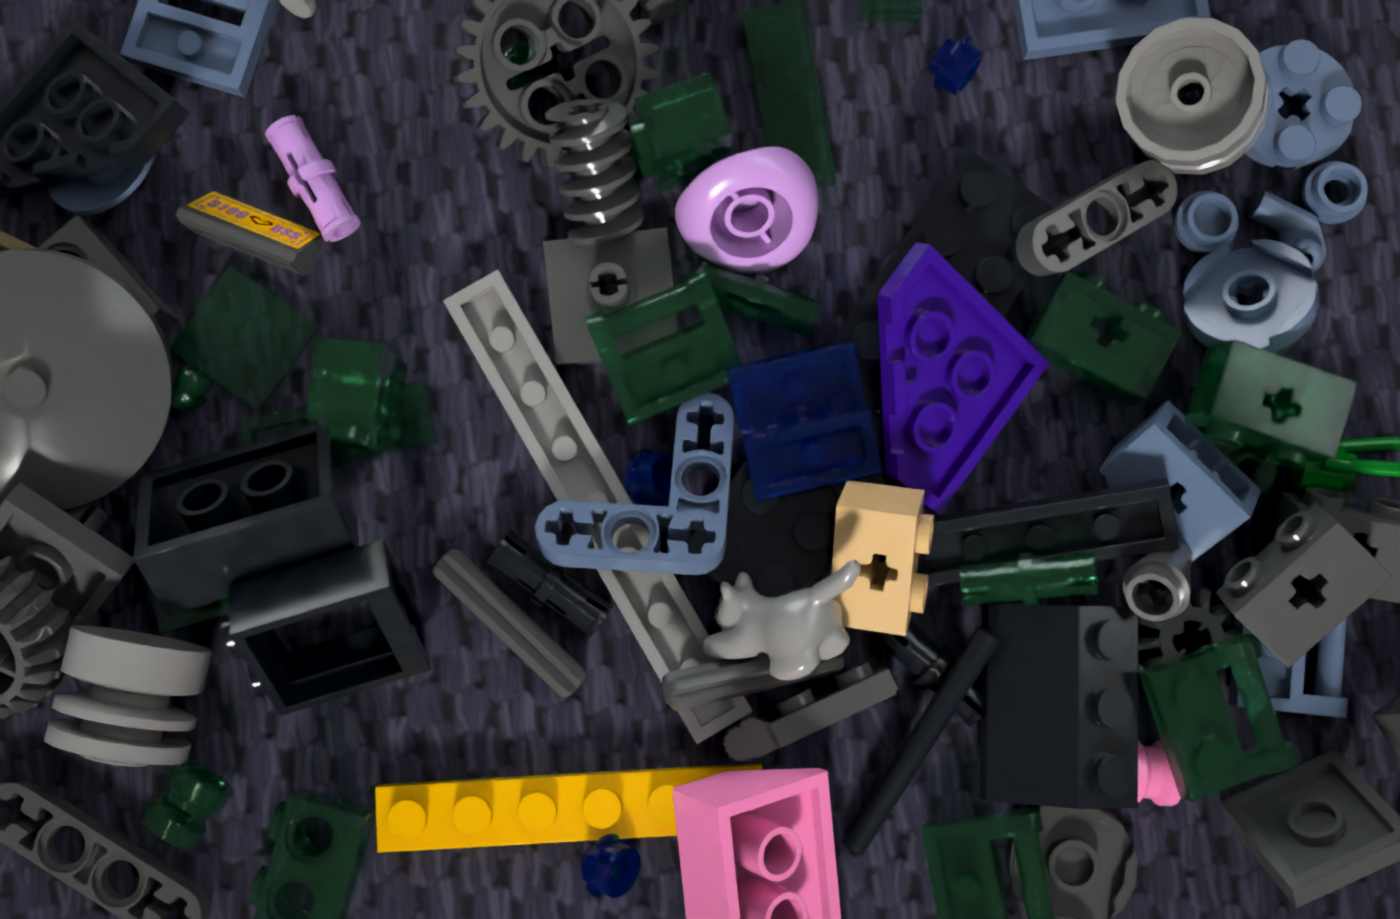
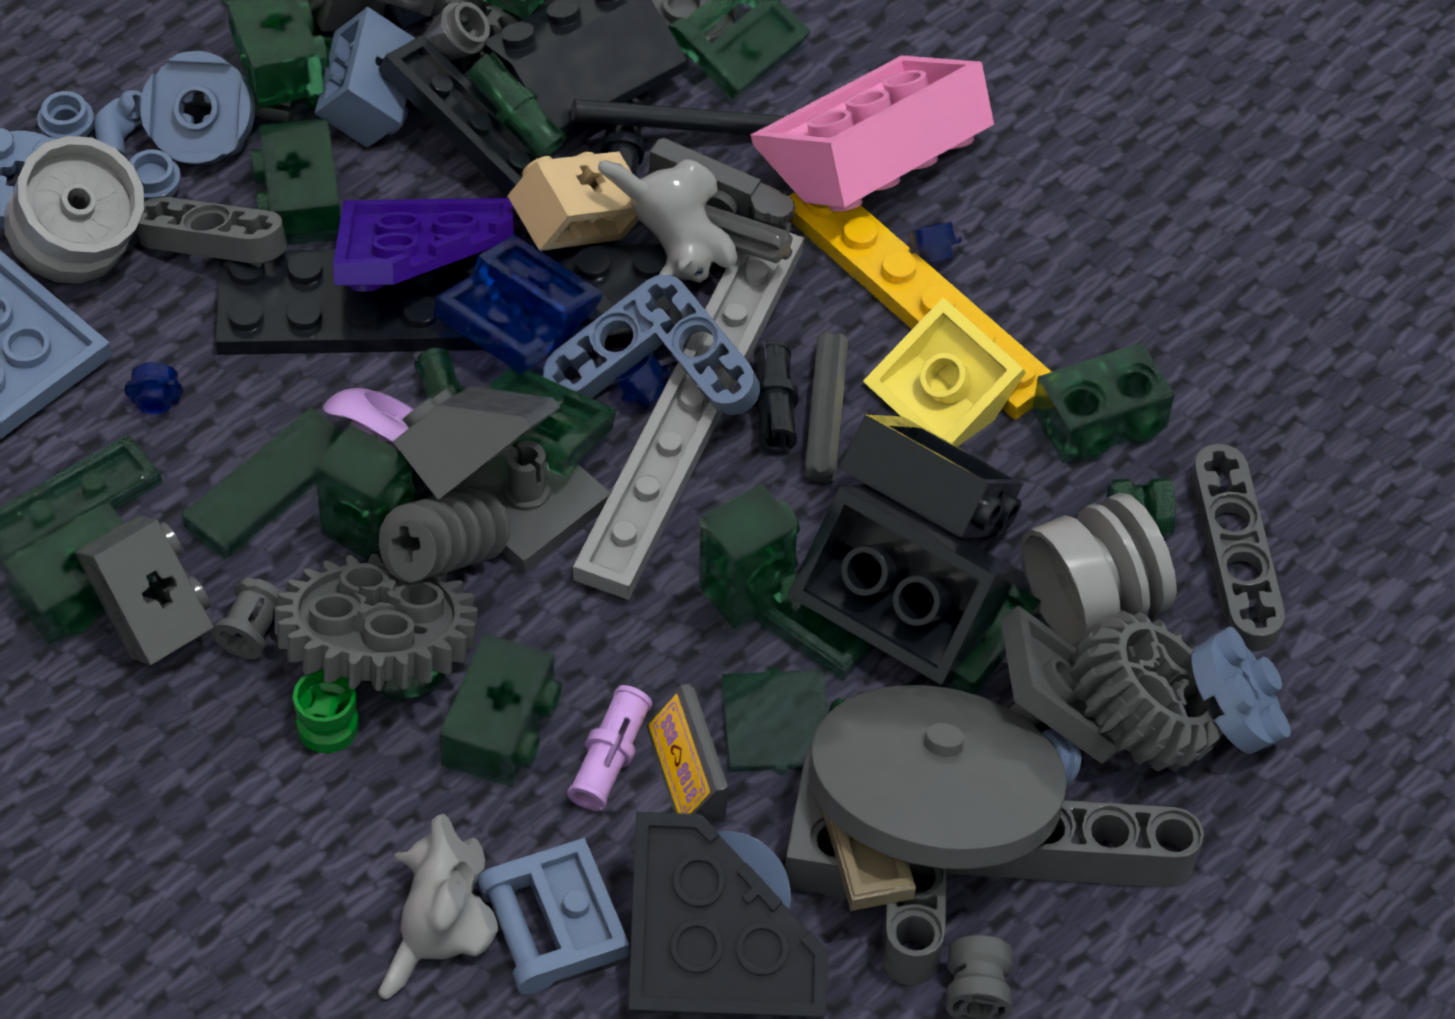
camera: 130 degrees left, 30 degrees down
(396, 78) = (499, 710): none -> clear green brick
(452, 747) = (946, 376): none -> light yellow slope
(646, 237) = (463, 433): none -> dark grey slope

